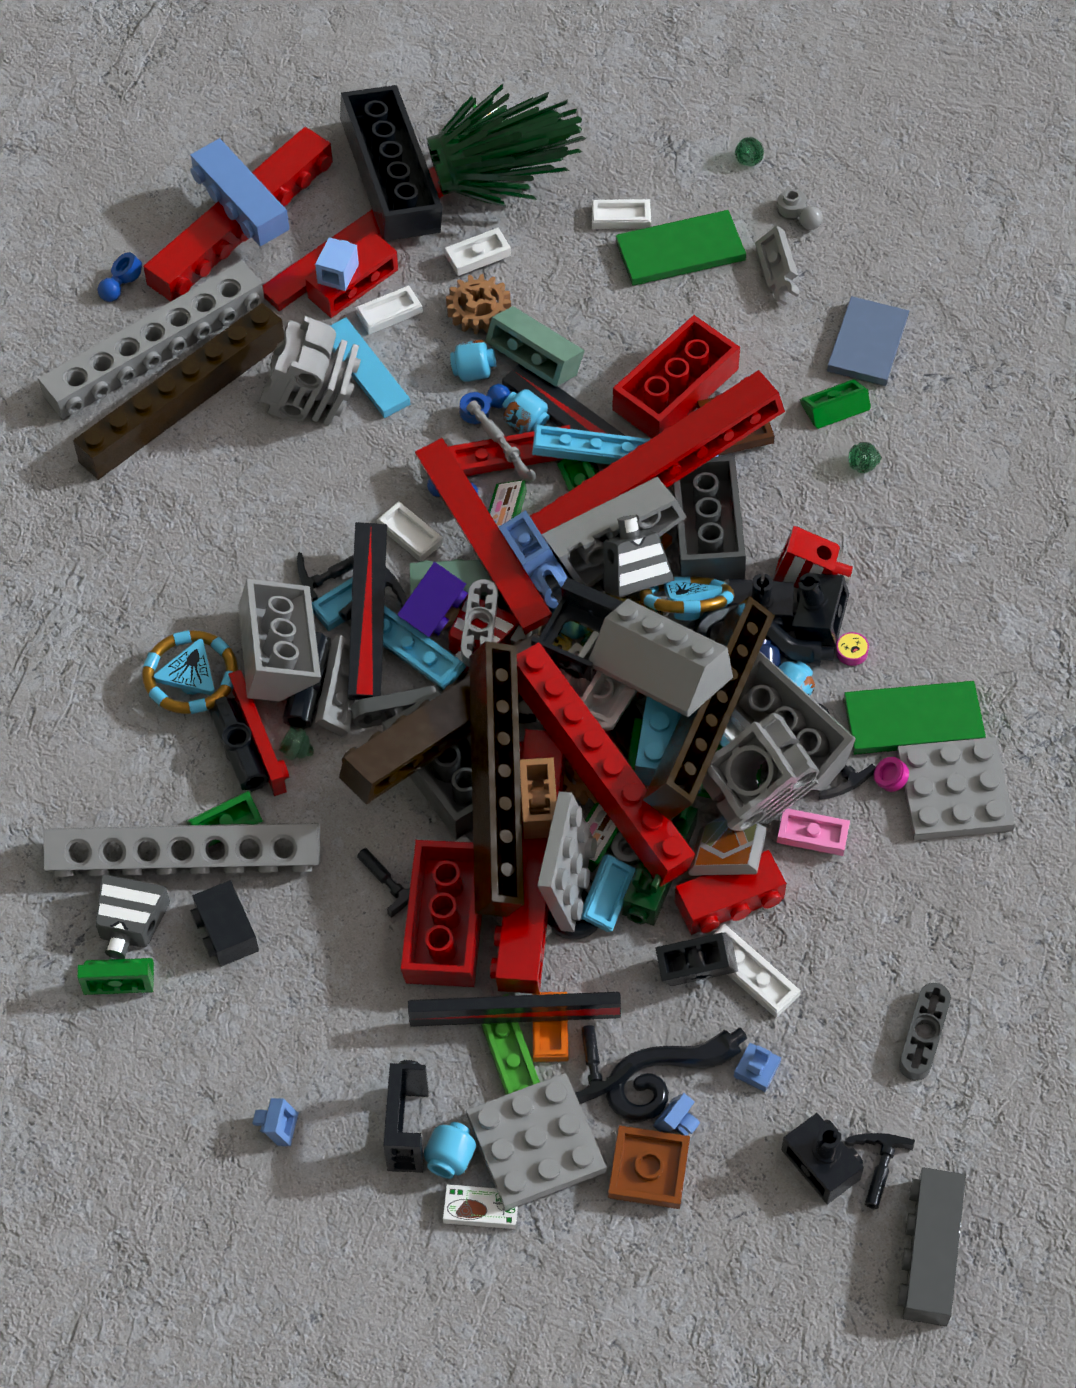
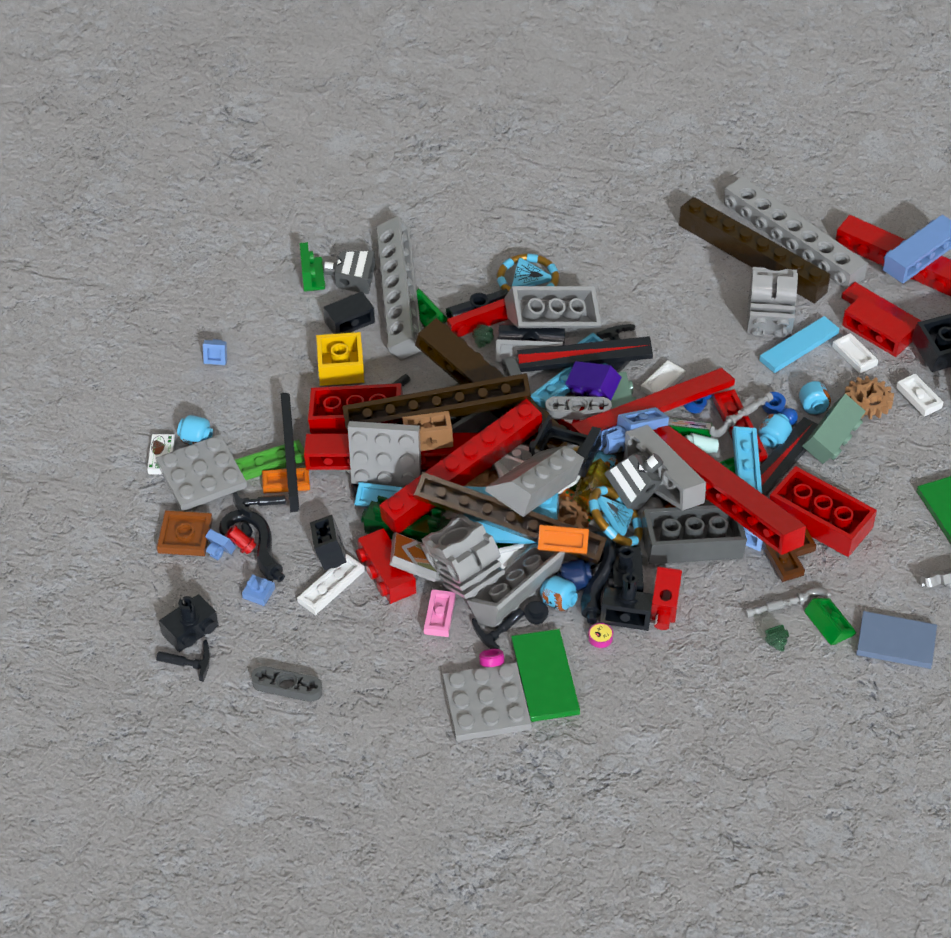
camera: 85 degrees right, 10 degrees down
(124, 270) = (836, 209): blue plate -> none
(328, 934) = (340, 358): none -> yellow brick
(337, 264) = (871, 305): light blue brick -> none
(403, 1149) = (195, 403): black window -> none
(538, 495) = (705, 443): none -> light aqua cone
(675, 1081) = (241, 539): none -> red pin
(754, 644) = (563, 539): none -> orange tile
(803, 427) = (779, 604): none -> light grey piece
(934, 1246) = (124, 686): dark grey brick -> none

